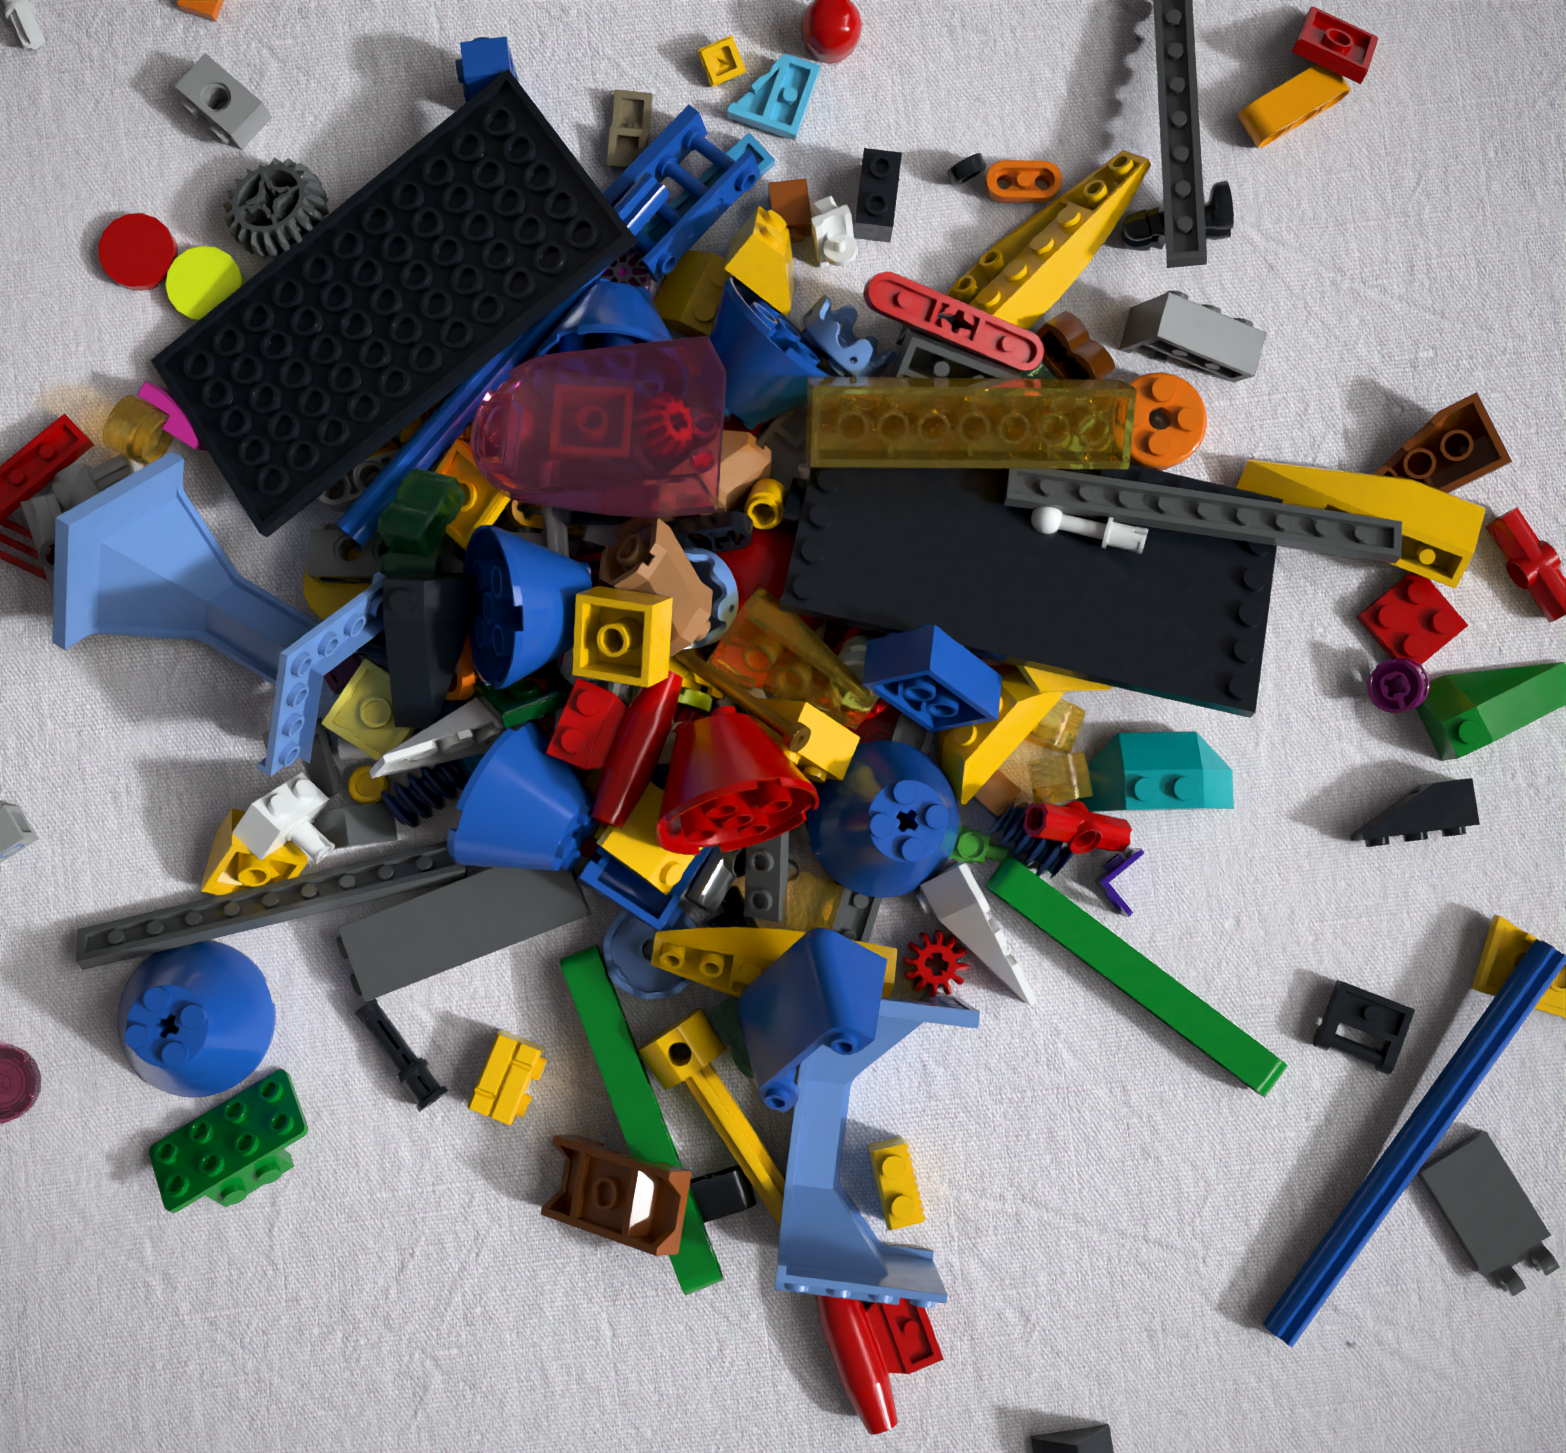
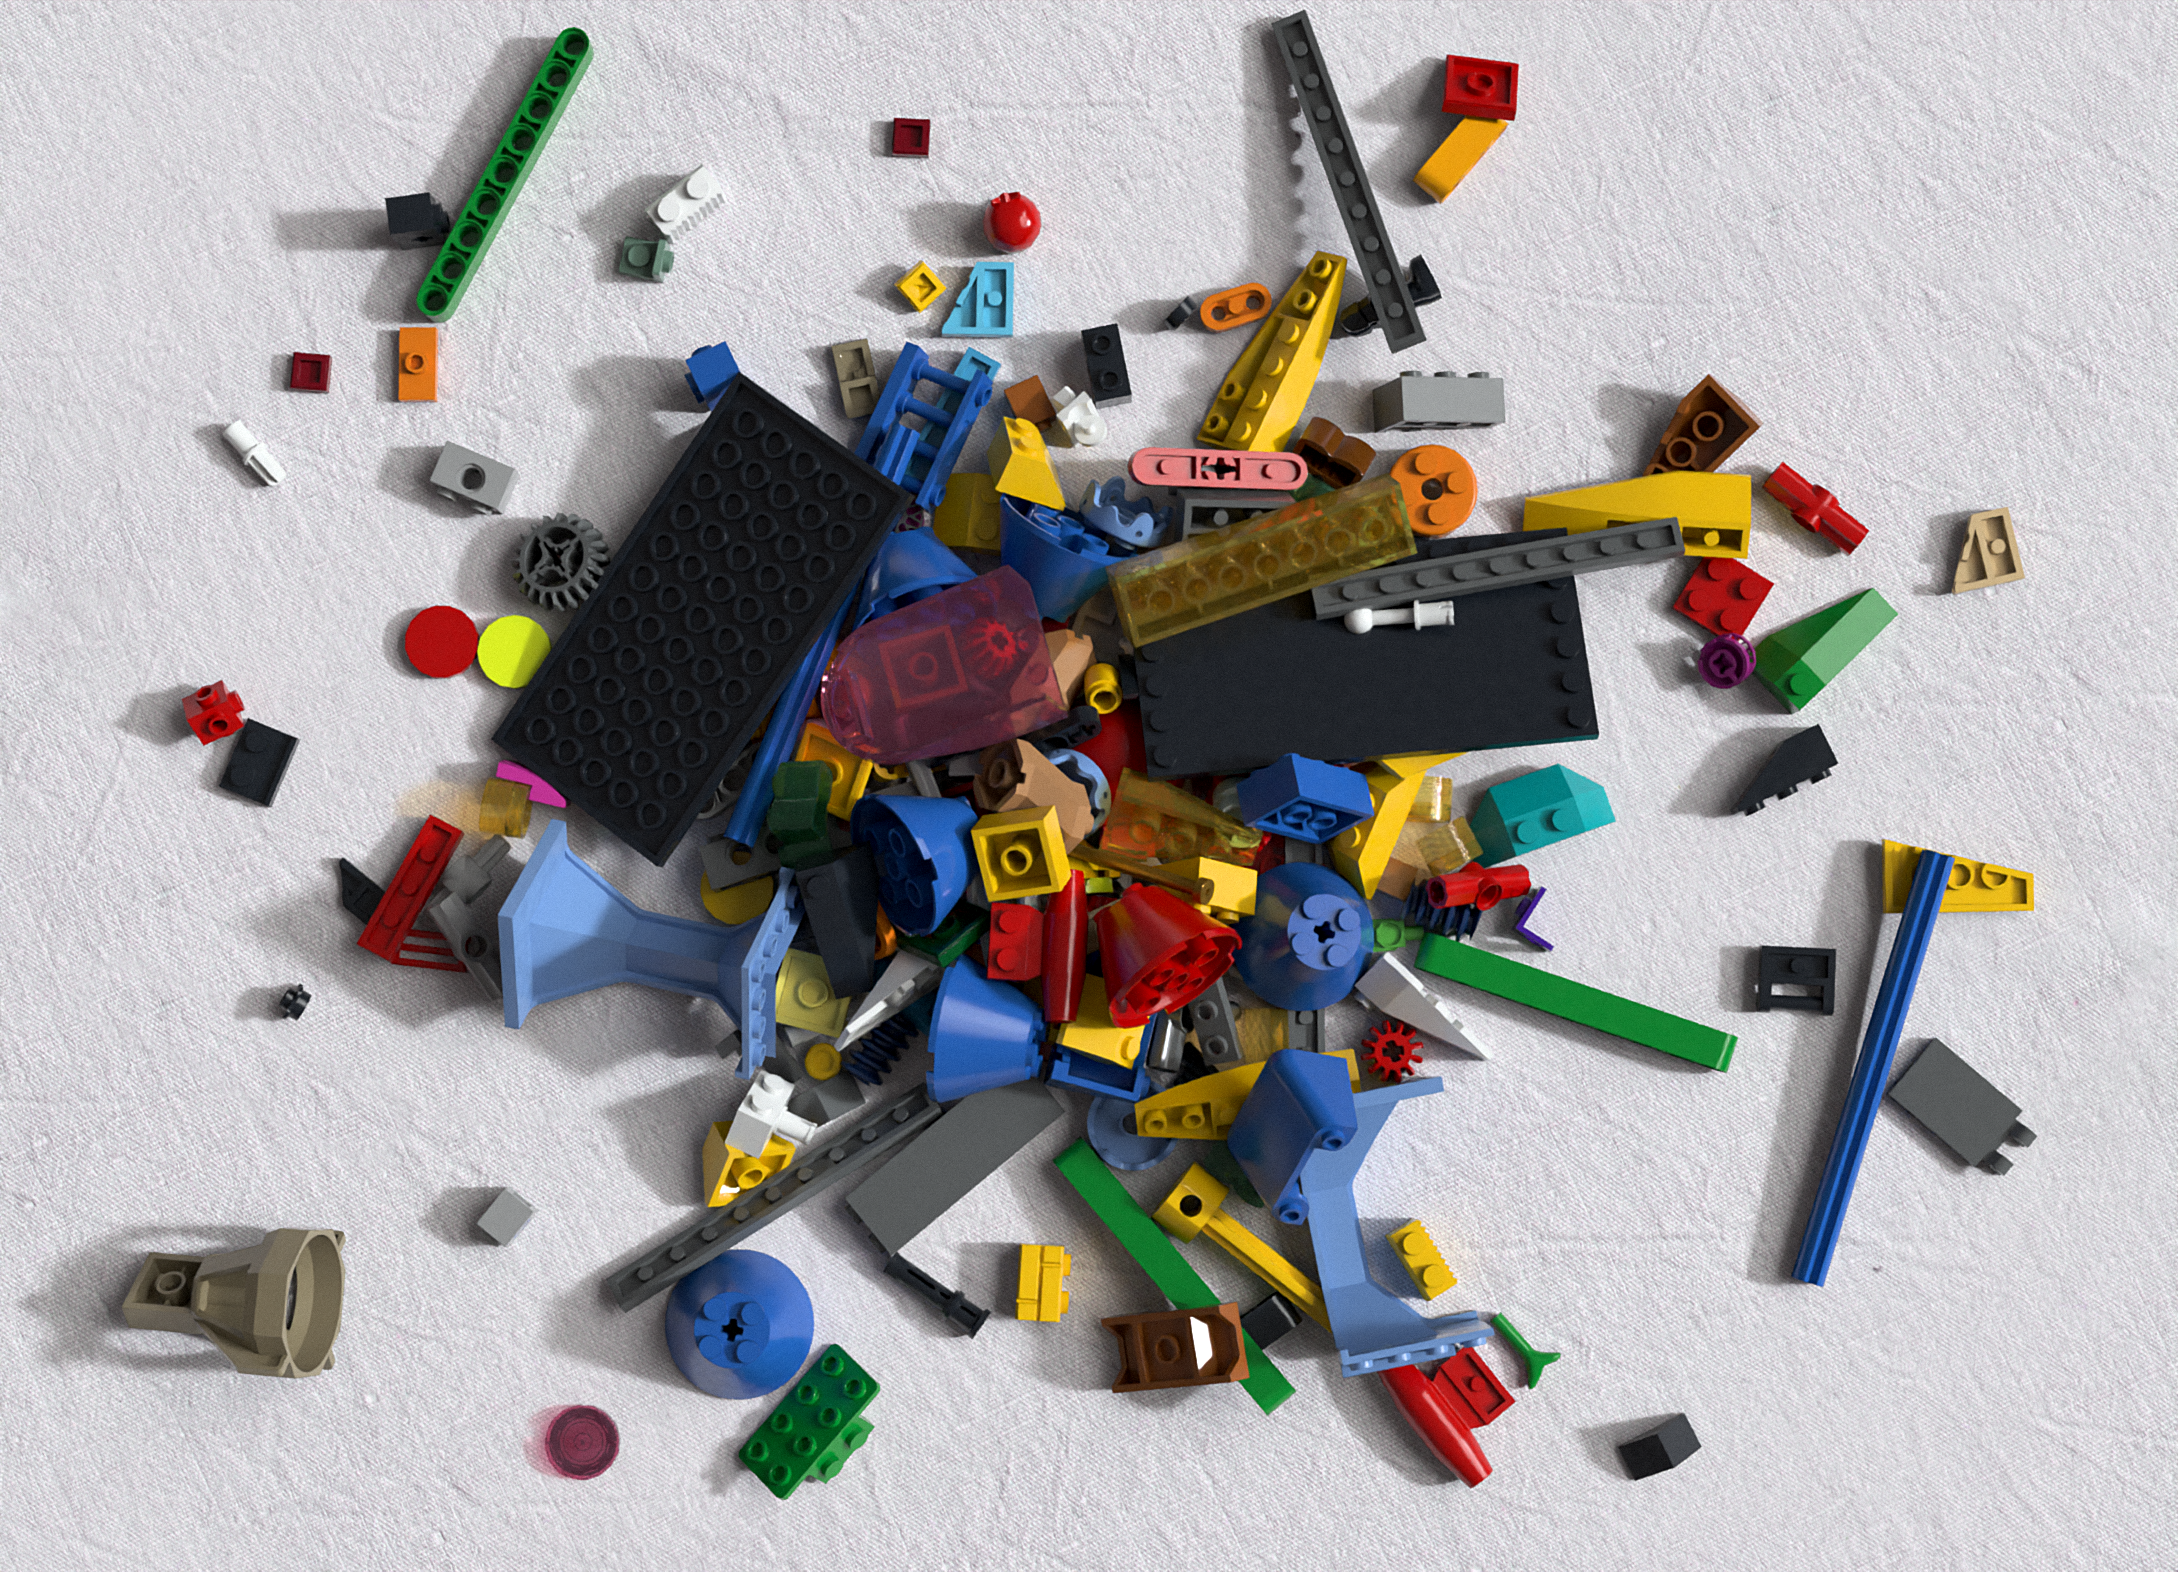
camera: 15 degrees left, 0 degrees up
(975, 1321) = (1533, 1359): none -> green piece

